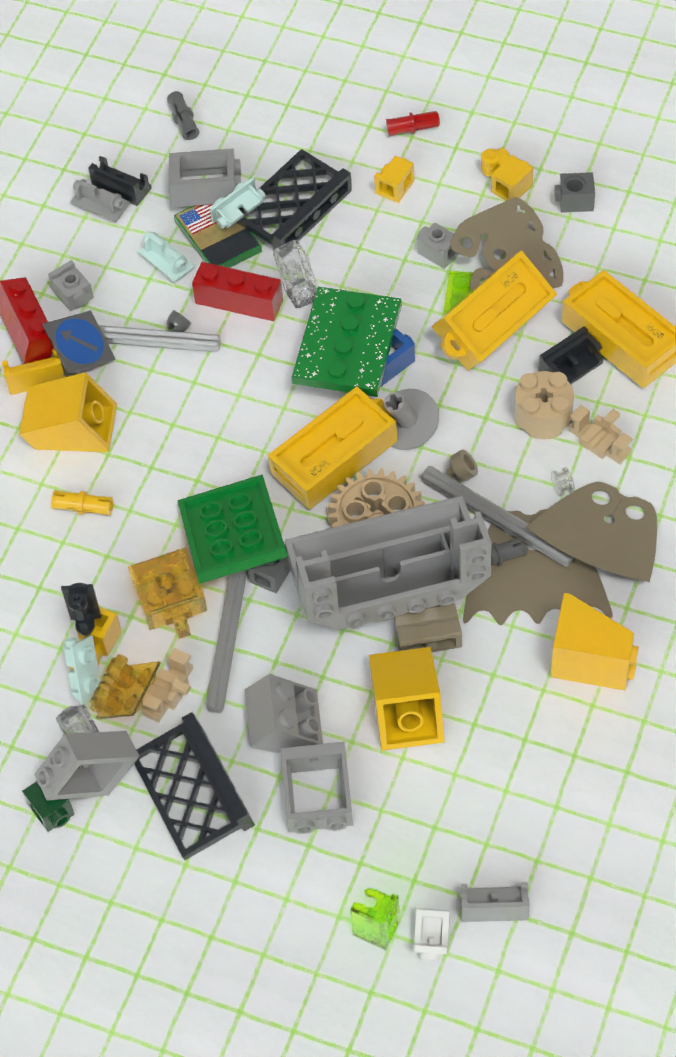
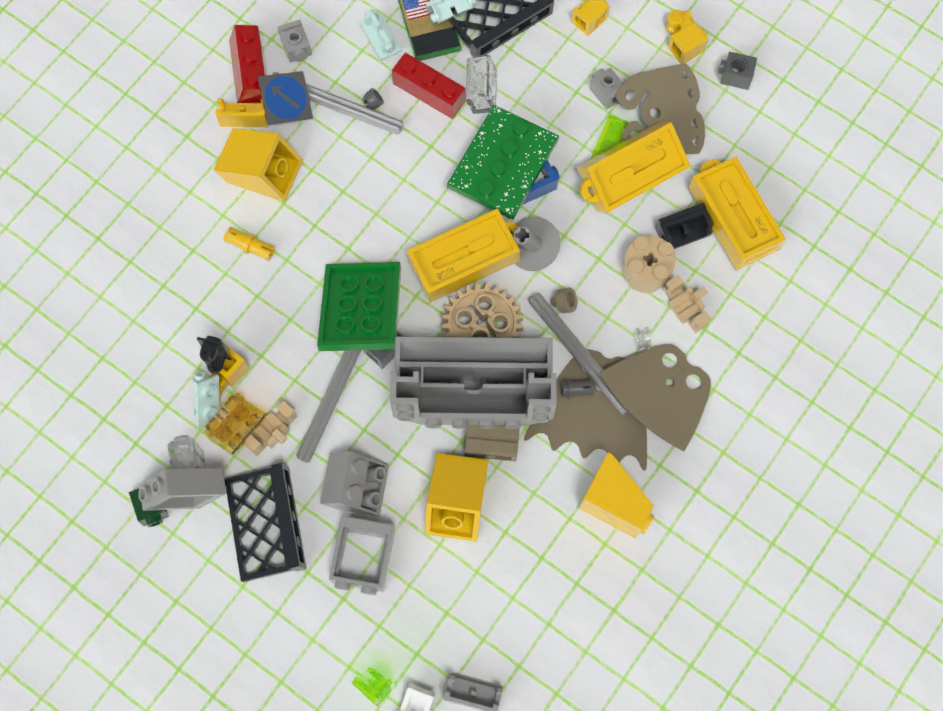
camera: 10 degrees right, 15 degrees up
(168, 591) = (295, 361): clear yellow hinge -> none

